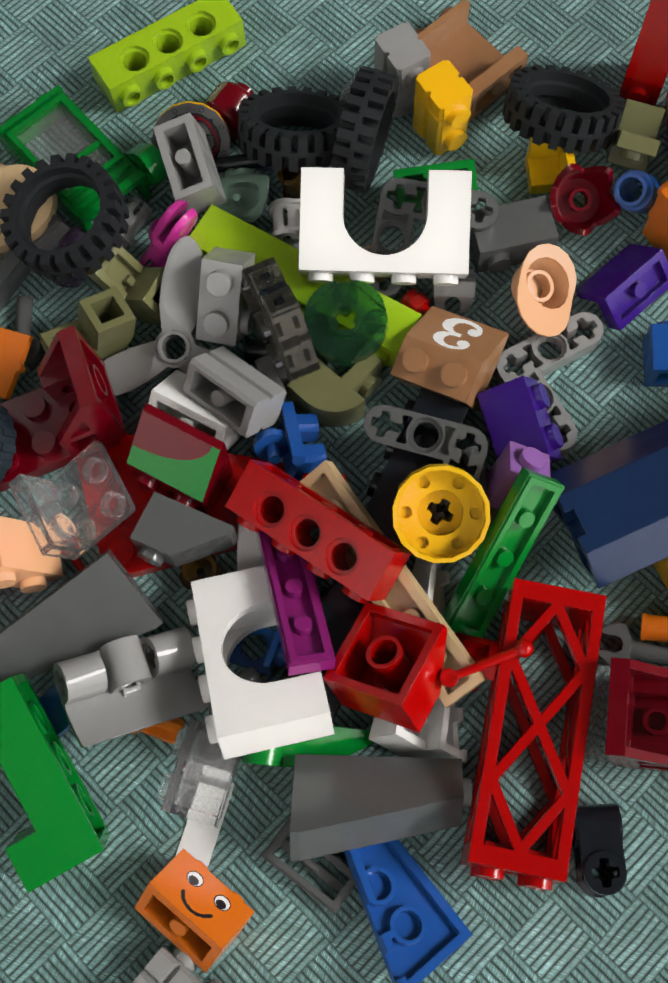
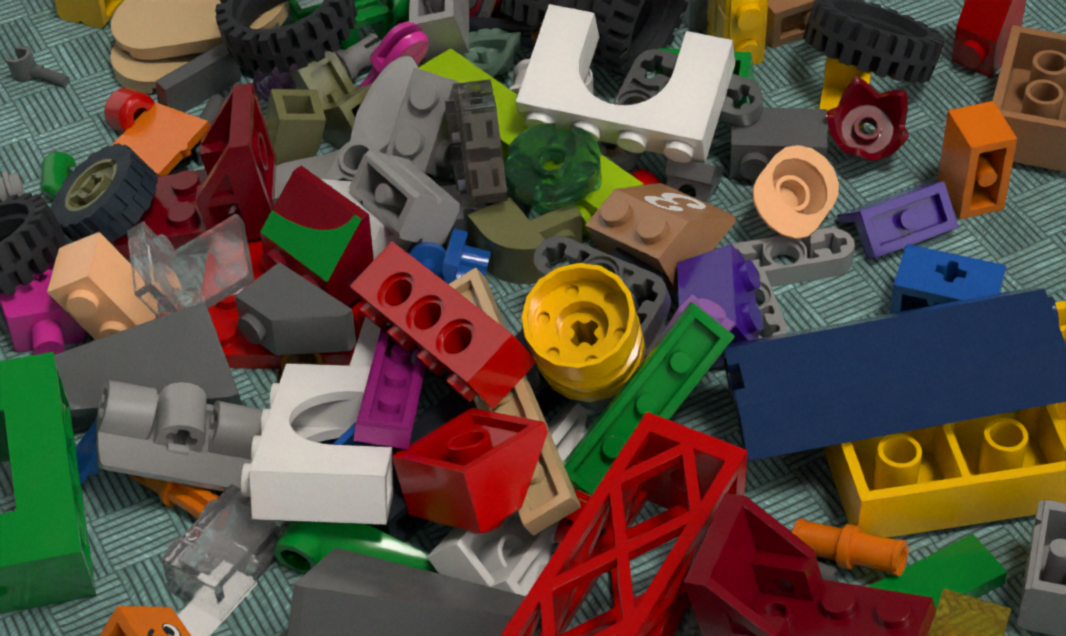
camera: 15 degrees right, 25 degrees down
(450, 677) = (536, 484): red hinge -> none
(627, 190) = (926, 126): blue brick -> none
(636, 135) = (953, 79): olive brick -> none

